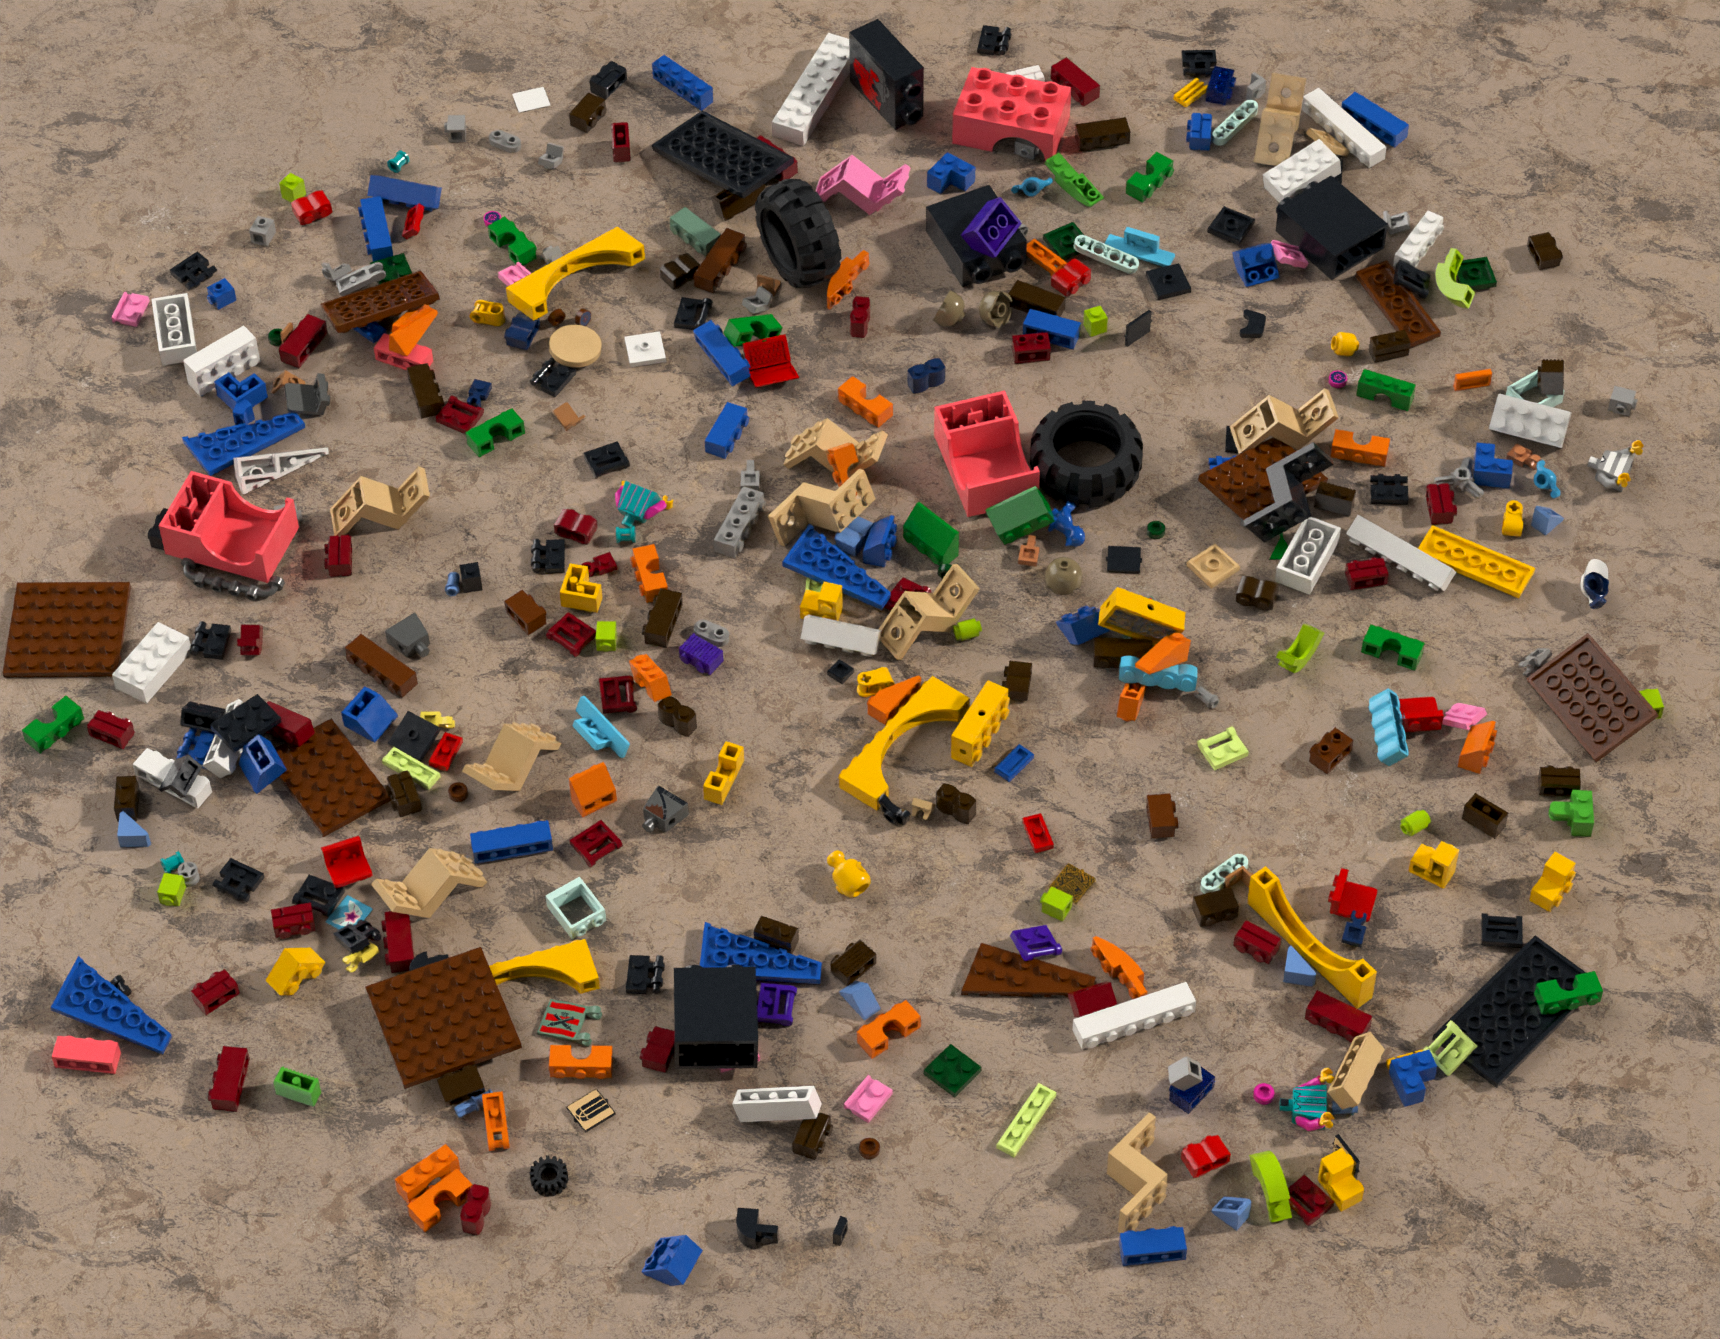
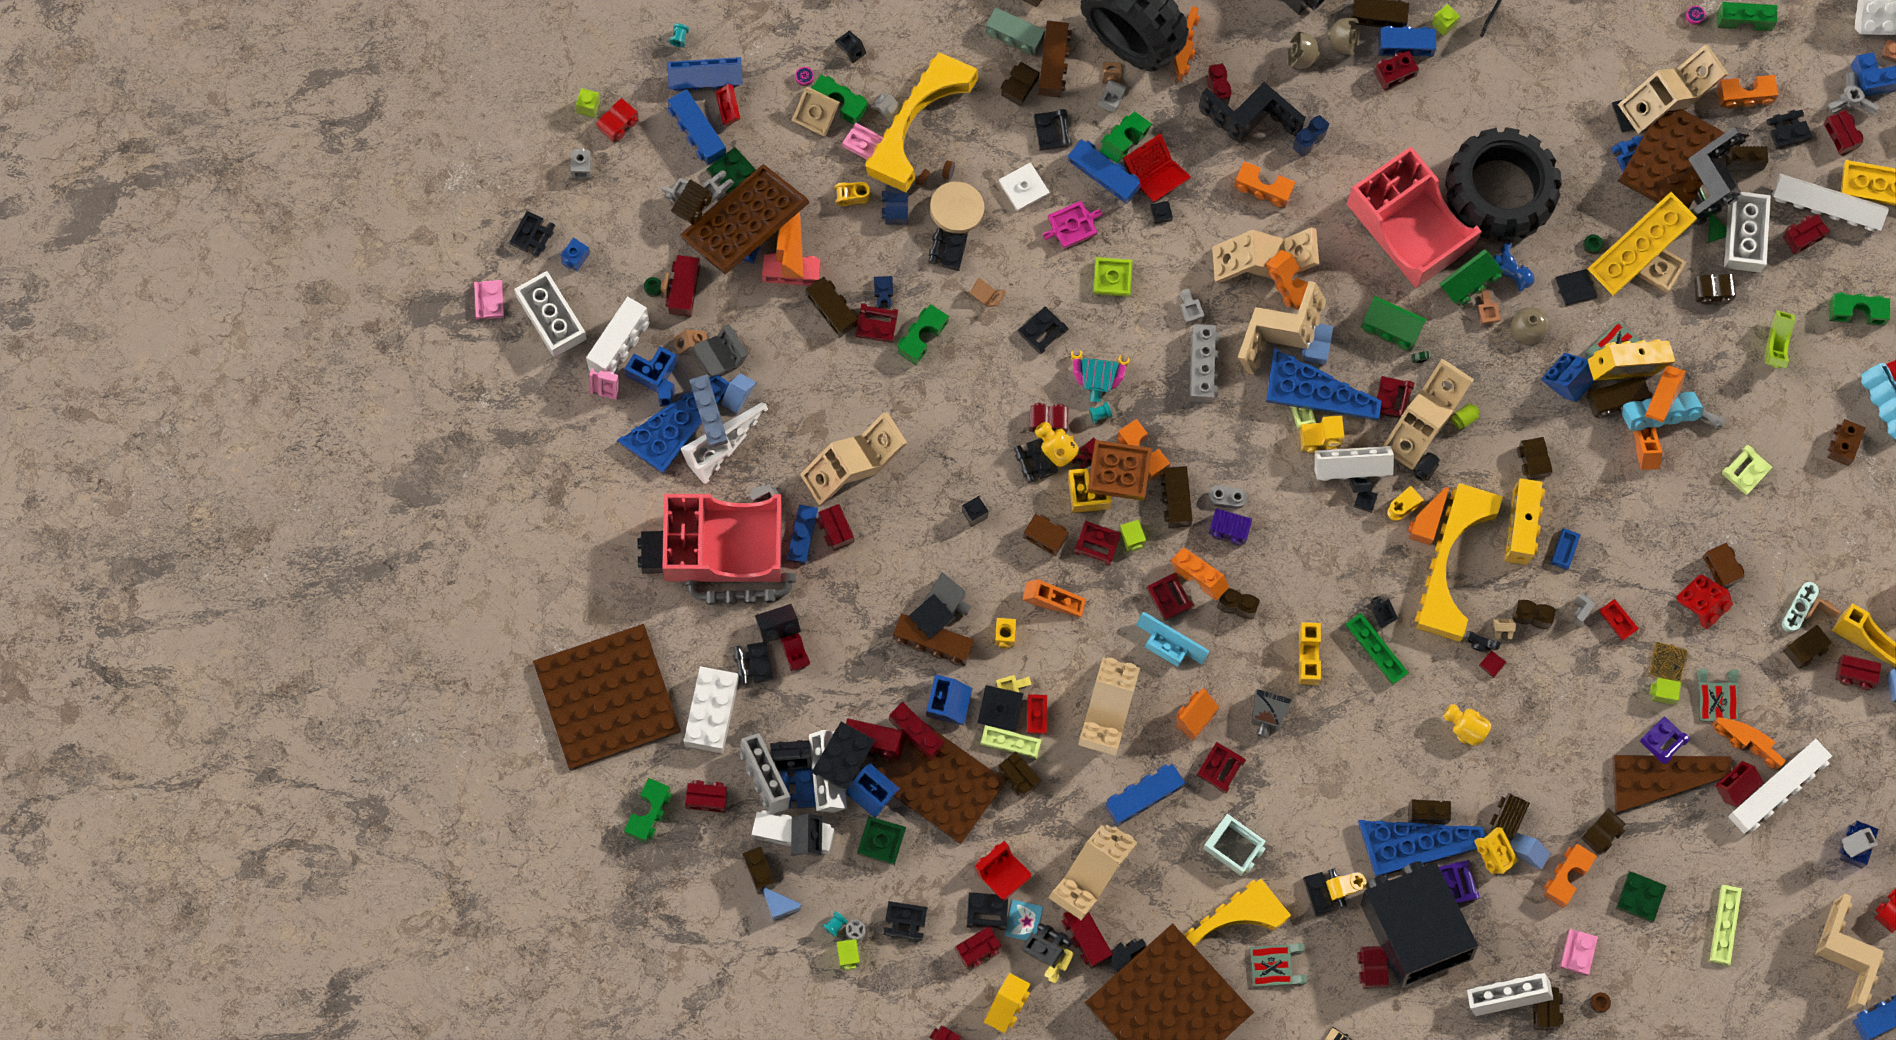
camera: 25 degrees left, 20 degrees up
(169, 720) = (764, 773): none -> light grey brick
(191, 390) = (604, 383): none -> bright pink plate
(246, 612) = (777, 623): none -> black brick
(250, 809) = (881, 840): none -> dark green plate
(271, 434) = (708, 411): none -> sand blue plate
(307, 432) = (737, 393): none -> medium blue slope
(307, 555) = (802, 534): none -> blue plate
(325, 726) = (916, 731): none -> dark red brick
(340, 278) = (692, 202): none -> dark brown brick
(386, 643) = (932, 616): none -> black piece
(450, 678) = (1008, 625): none -> yellow brick
(452, 587) = (959, 523): medium blue pin -> none
(458, 792) = (1066, 753): reddish brown tile -> none
(486, 243) = (815, 111): none -> tan tile
(508, 664) = (1053, 598): none -> orange slope
(545, 208) = (851, 46): none -> black bracket
(570, 544) = (1057, 444): none -> yellow piece
(596, 1065) = (1293, 1013): orange arch -> none
(615, 574) = (1119, 470): none -> dark orange plate
(660, 967) = (1345, 885): none -> yellow piece
(673, 387) = (1072, 225): none -> dark pink plate
(689, 435) = (1112, 277): none -> lime plate
(726, 430) = (1146, 260): blue brick -> none
(760, 400) = (1161, 212): none -> black plate
(791, 790) = (1376, 649): none -> green plate
(812, 761) = (1382, 610): none -> black bracket
(824, 984) = (1496, 851): none -> yellow bracket
(840, 655) = (1360, 484): none -> black tile
(876, 340) = (1251, 112): none -> black bracket
(880, 541) = (1347, 345): blue slope -> none
(898, 835) = (1492, 664): none -> dark red tile
(910, 658) = (1426, 466): none -> black brick
(939, 1002) = (1603, 831): none -> dark brown brick
(1006, 816) = (1582, 612): none -> light grey bracket
(1107, 924) = (1718, 698): none -> flag
(1132, 842) = (1706, 600): none -> red bracket
(1198, 534) = (1642, 244): none -> yellow plate

